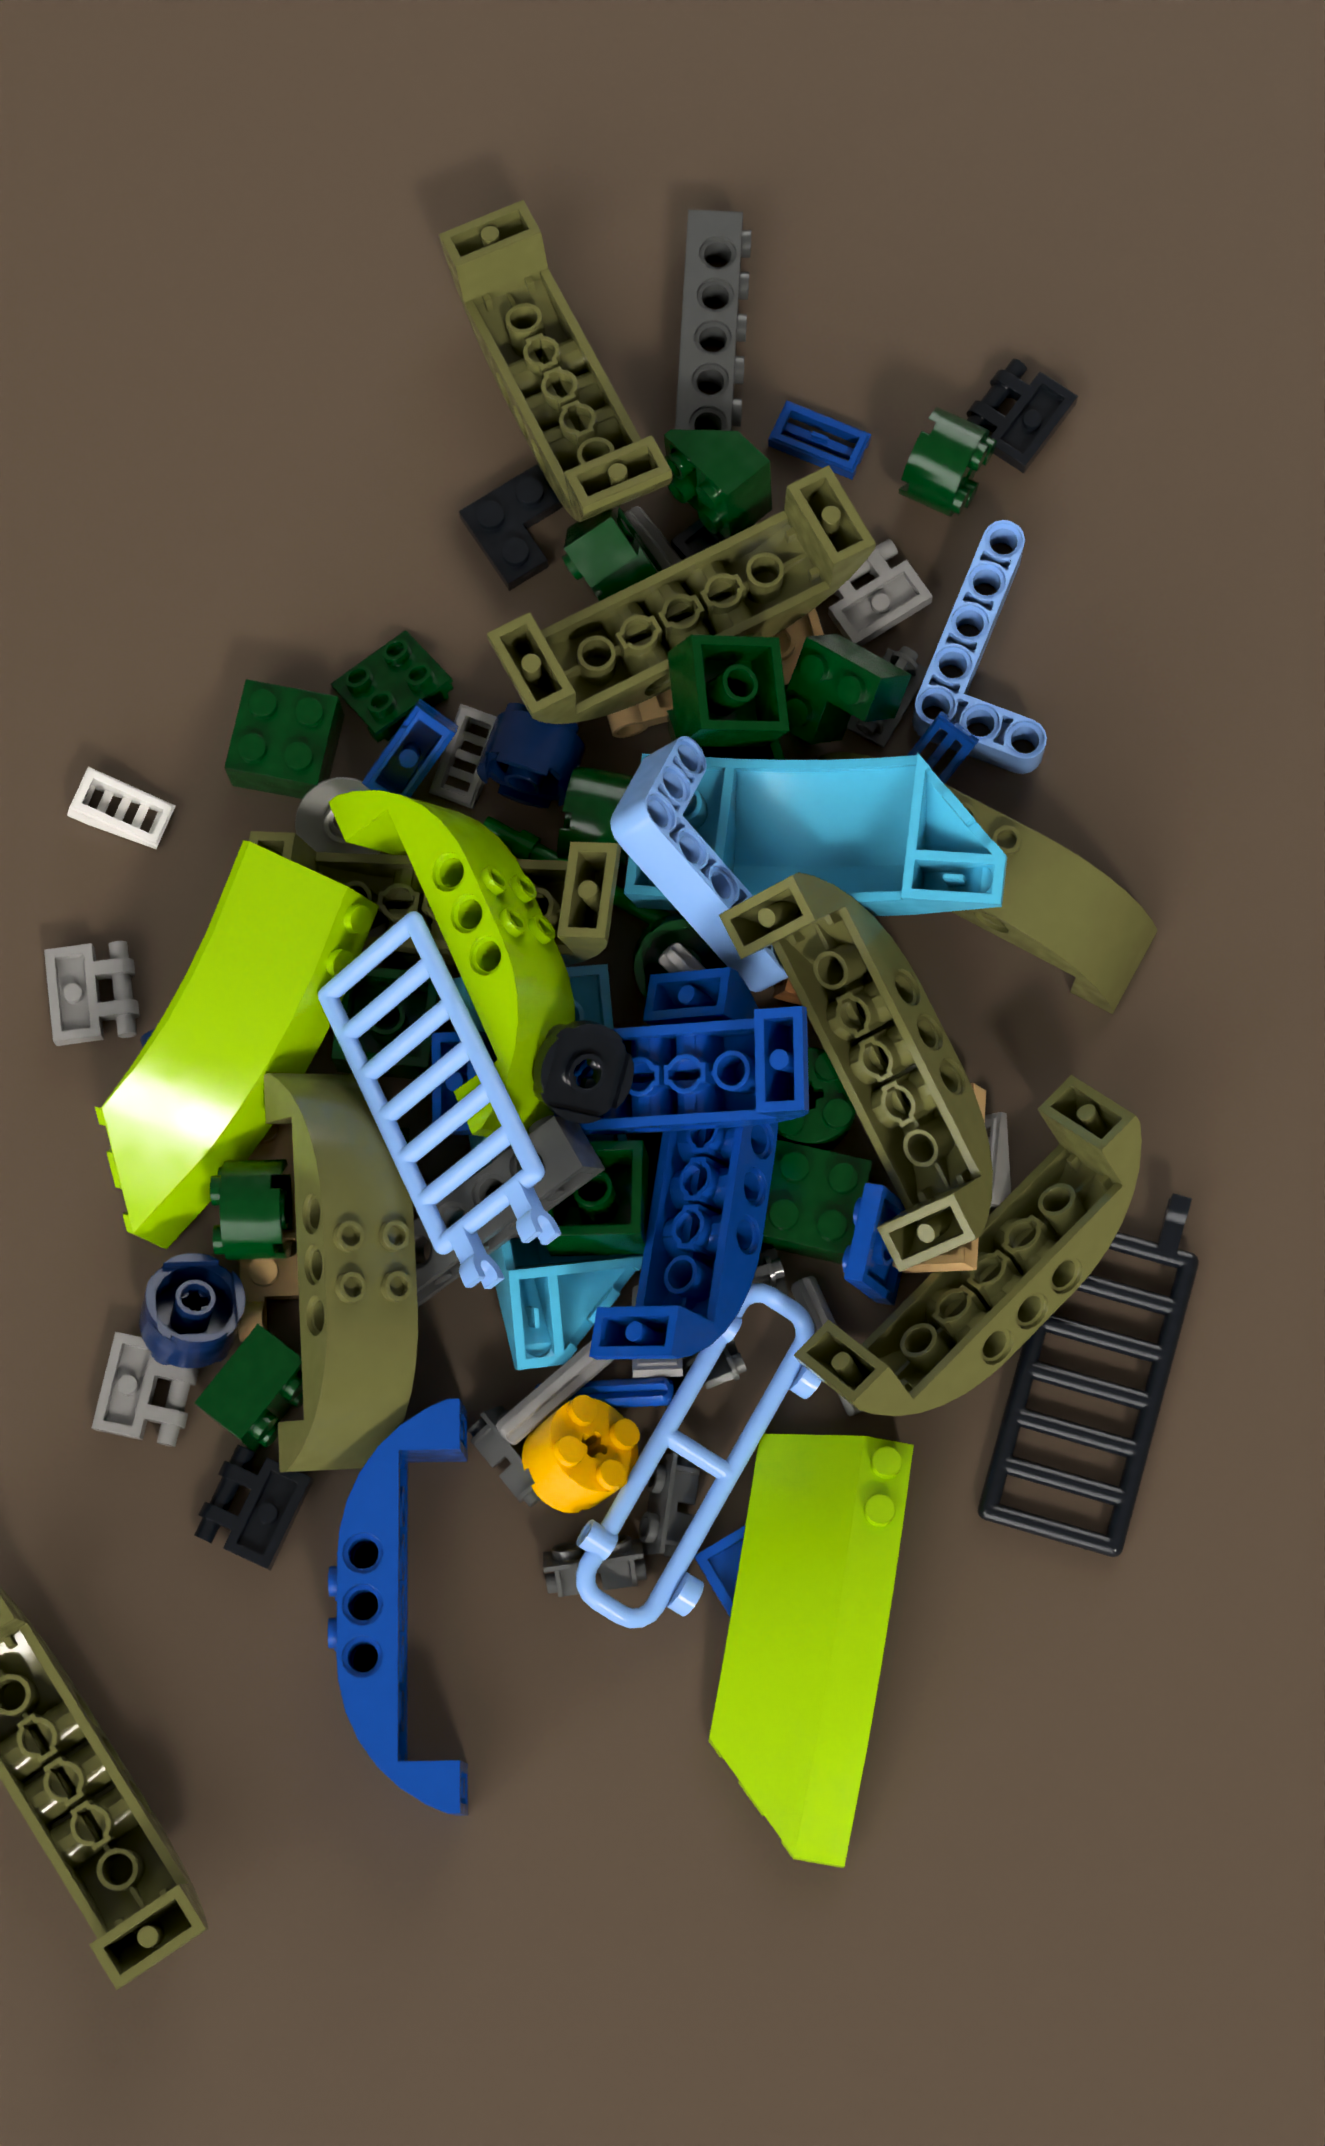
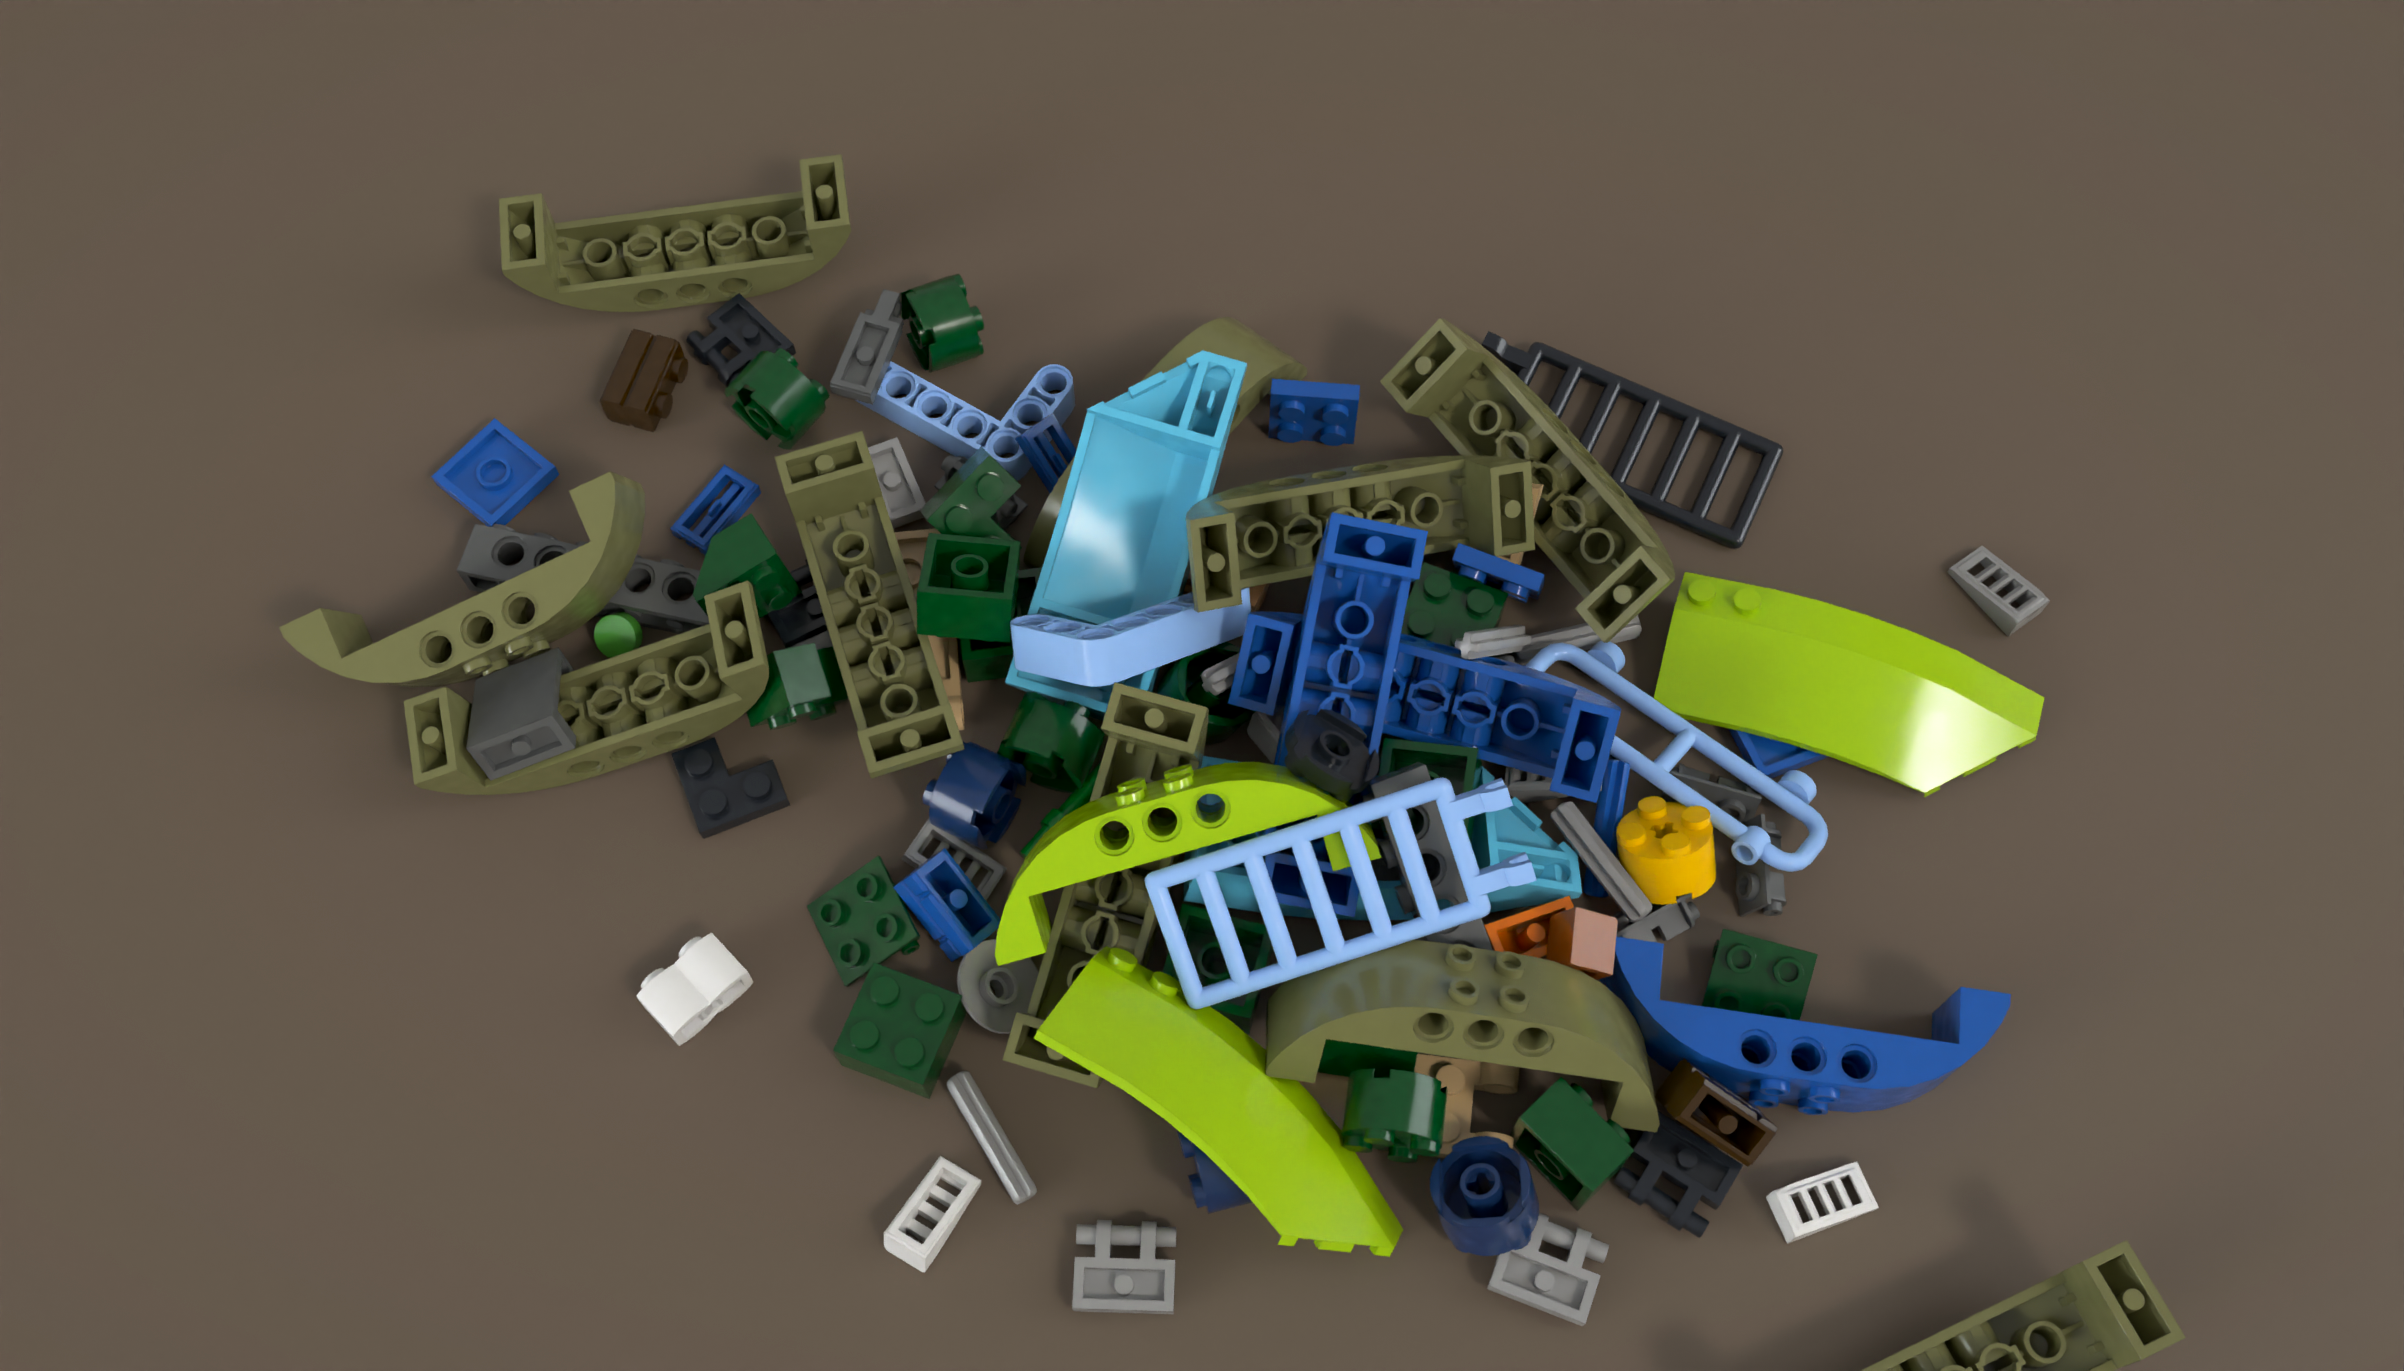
camera: 85 degrees left, 10 degrees down
(199, 848) = (991, 1137): none -> light grey axle
(226, 1618) = (1789, 1218): none -> white slope
(300, 545) = (694, 987): none -> white brick
(305, 1529) = (1716, 1112): none -> dark brown brick
(448, 1369) = (1583, 941): none -> panel
(459, 1571) = (1758, 976): none -> dark green hinge
(464, 1325) = (1526, 931): none -> orange slope
(538, 303) = (518, 715): none -> dark grey panel
(574, 142) = (500, 622): none -> olive slope
(655, 381) = (617, 634): none -> bright green tile
(778, 1240) = (1492, 641): none -> light grey axle
(813, 217) = (495, 475): none -> blue plate
(950, 1842) = (2004, 615): none -> light grey slope
(952, 330) = (644, 380): none -> dark brown brick
(1016, 540) = (869, 350): none -> dark grey hinge
(1037, 1003) = (1313, 411): none -> blue plate
(1075, 606) = (942, 323): none -> dark green brick
(1105, 309) = (678, 252): none -> olive slope

